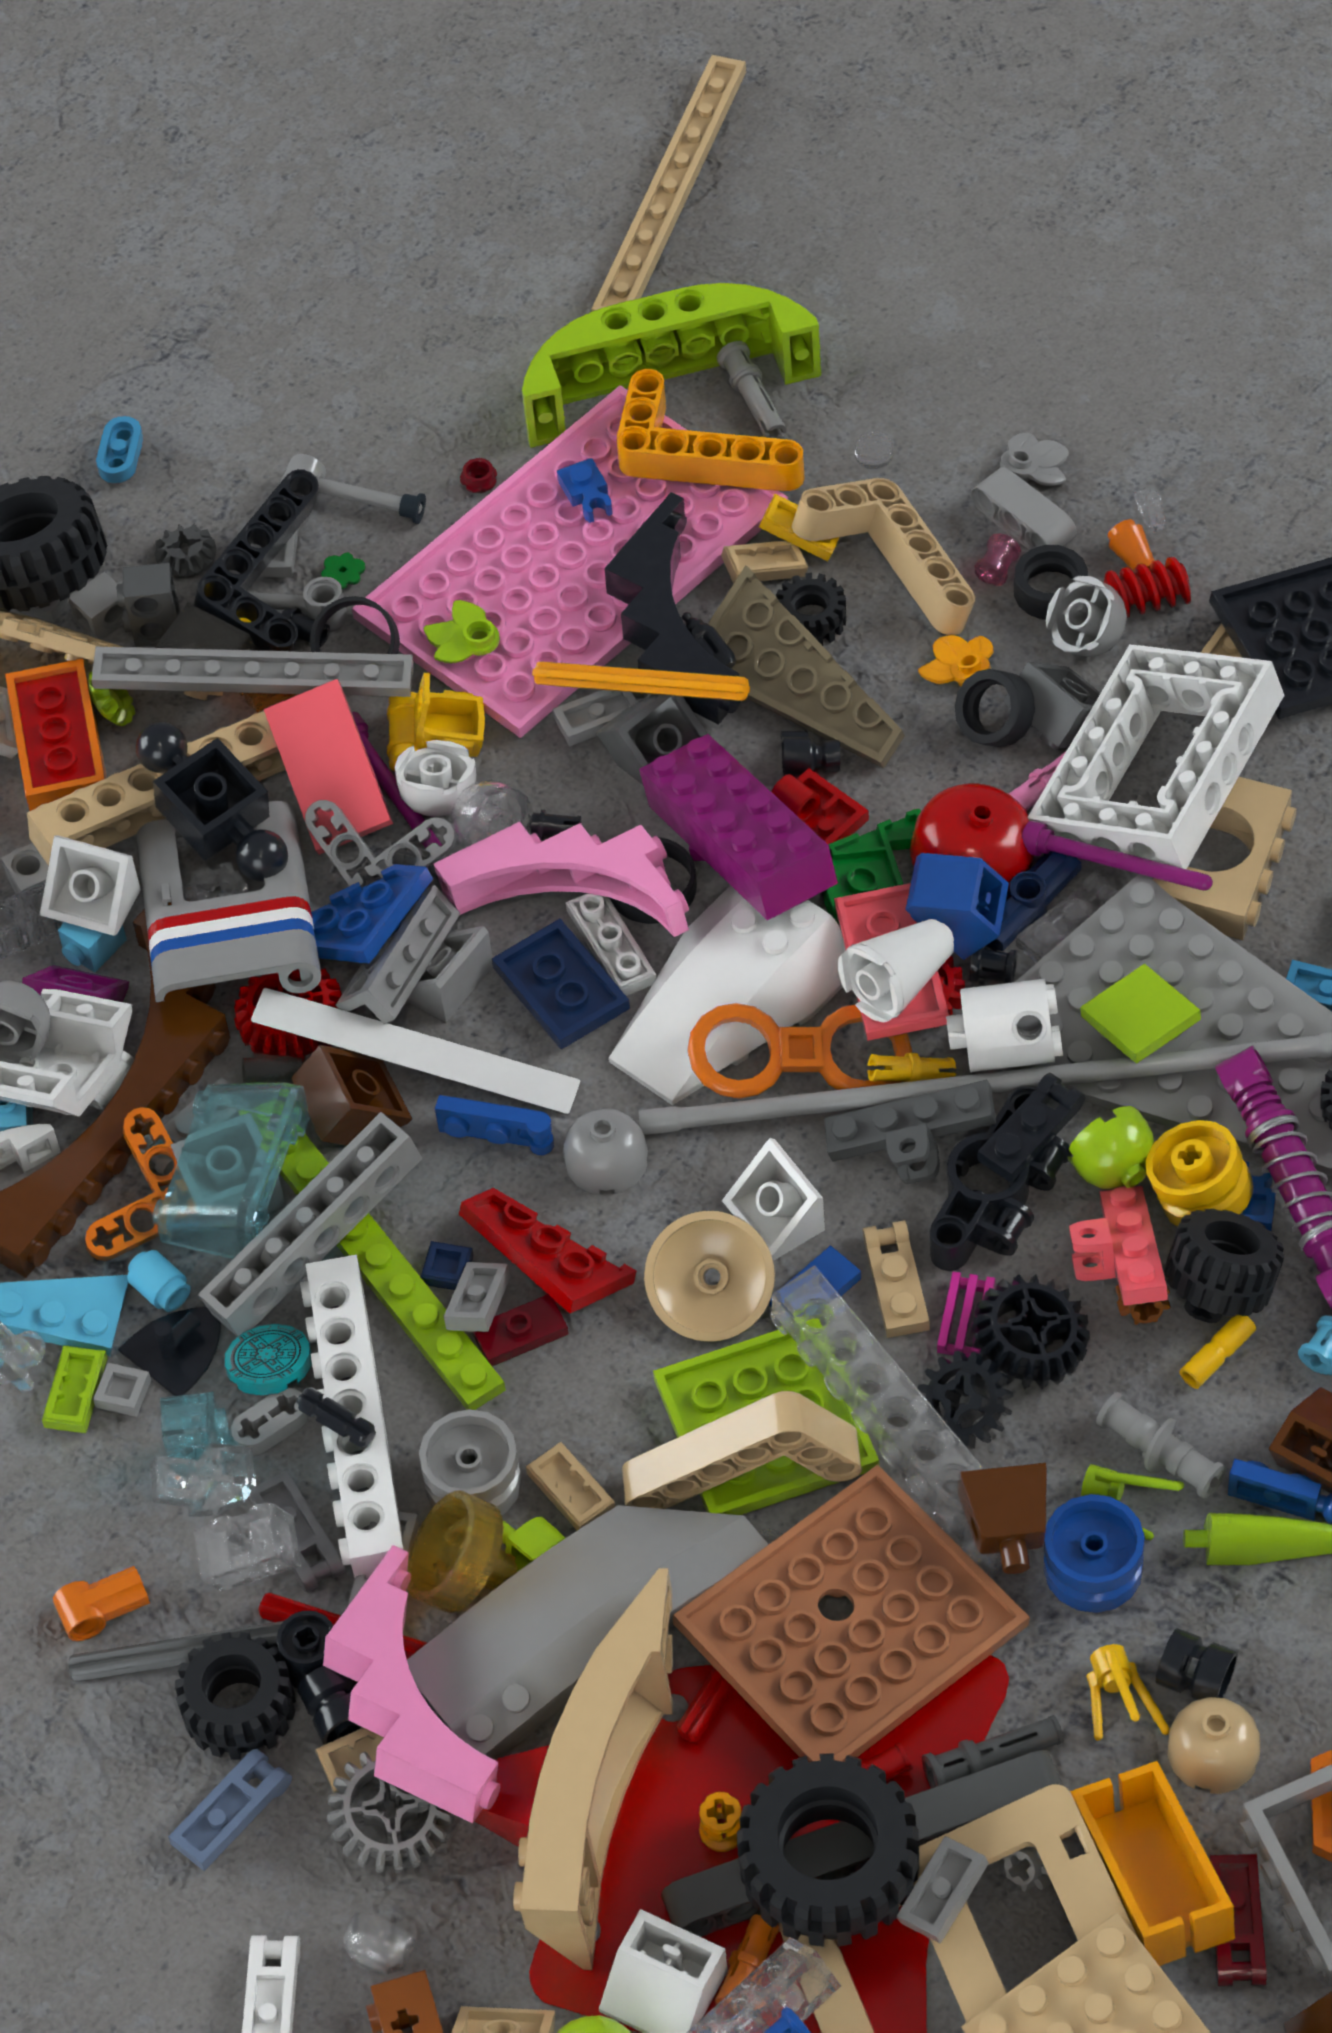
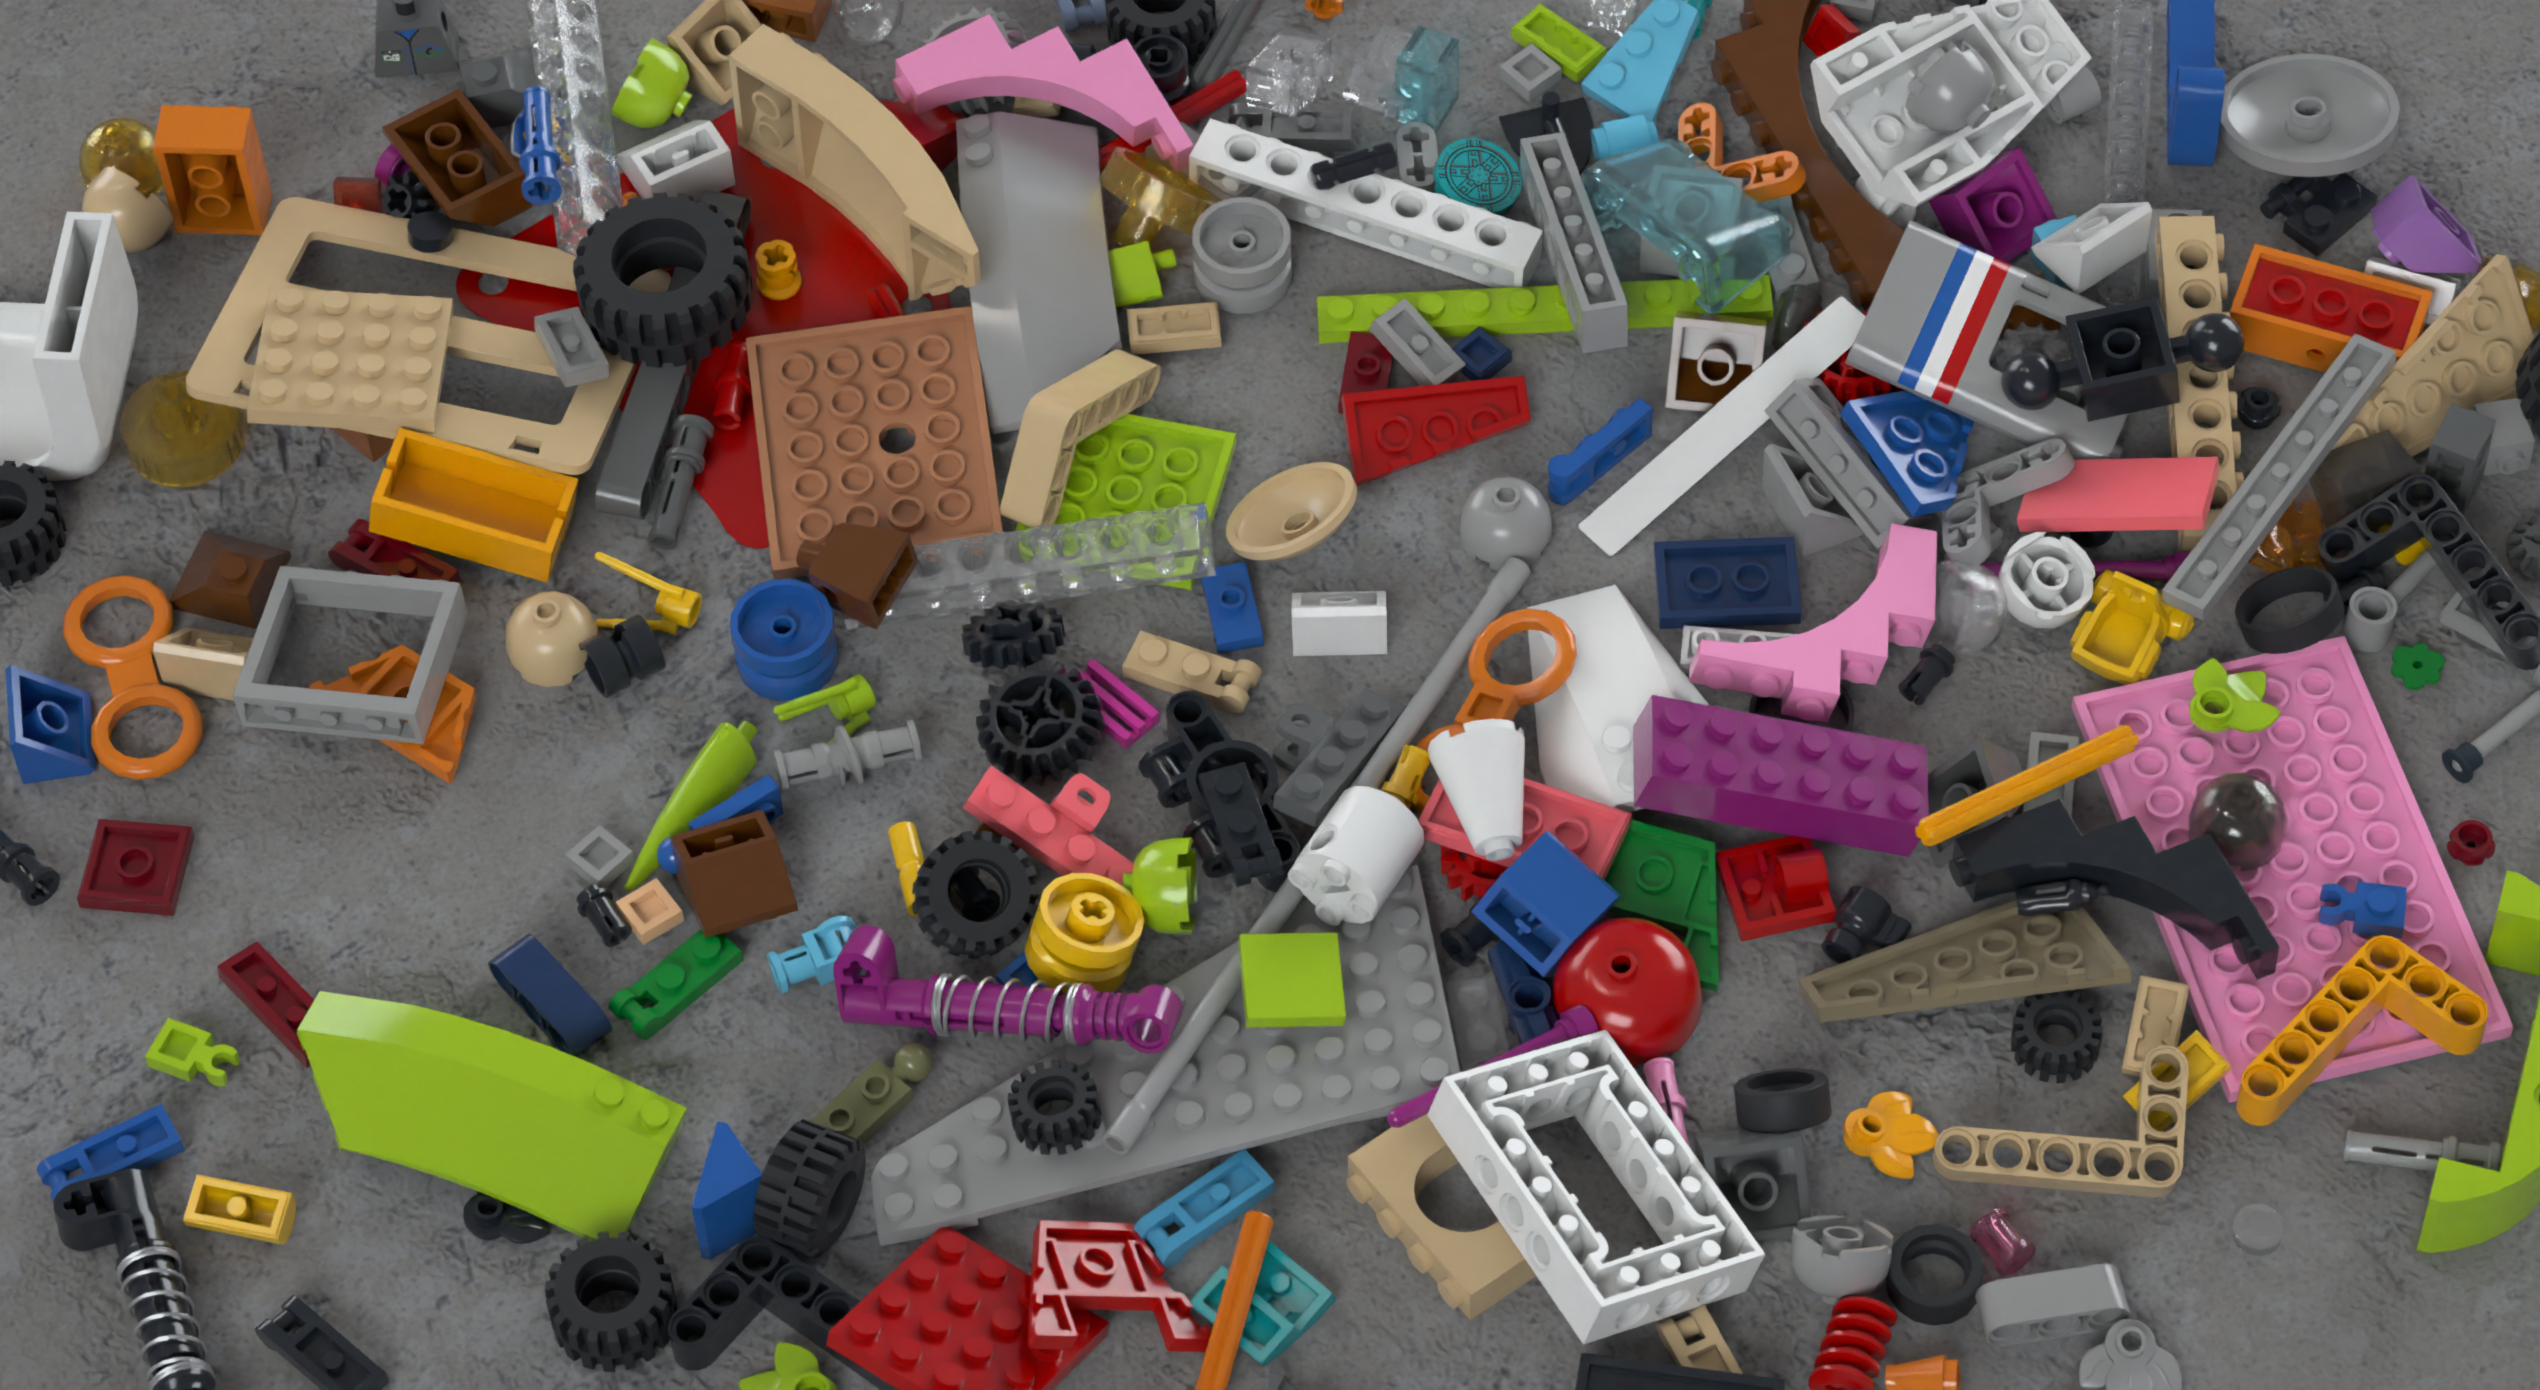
camera: 120 degrees right, 0 degrees up
(568, 579) = (2242, 817): none -> clear smoke cylinder

